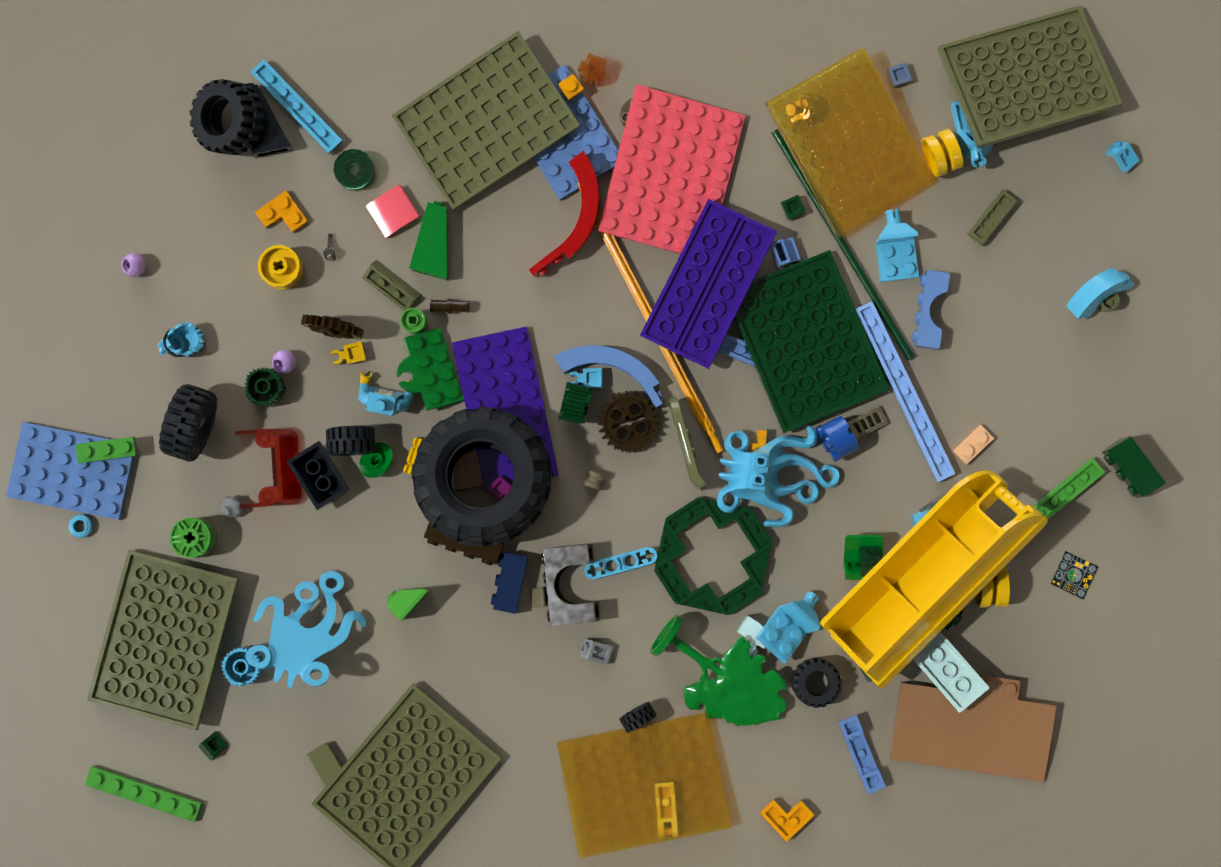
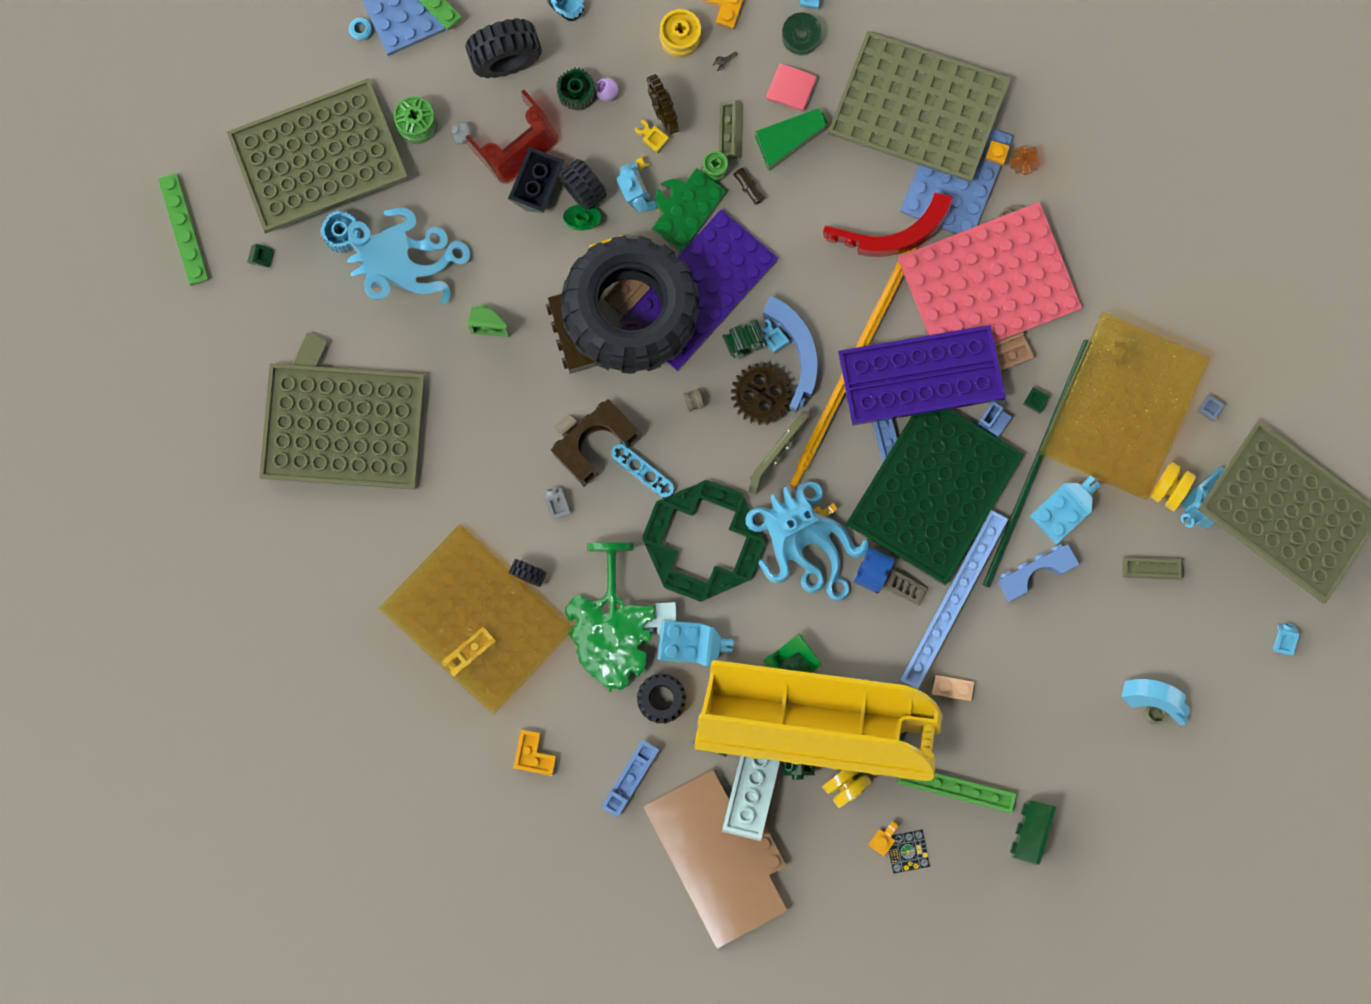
camera: 55 degrees right, 5 degrees down
(509, 582) = (561, 393): dark blue brick -> none
(740, 196) = (1013, 352): none -> medium nougat plate
(1052, 589) = (882, 840): none -> light orange plate

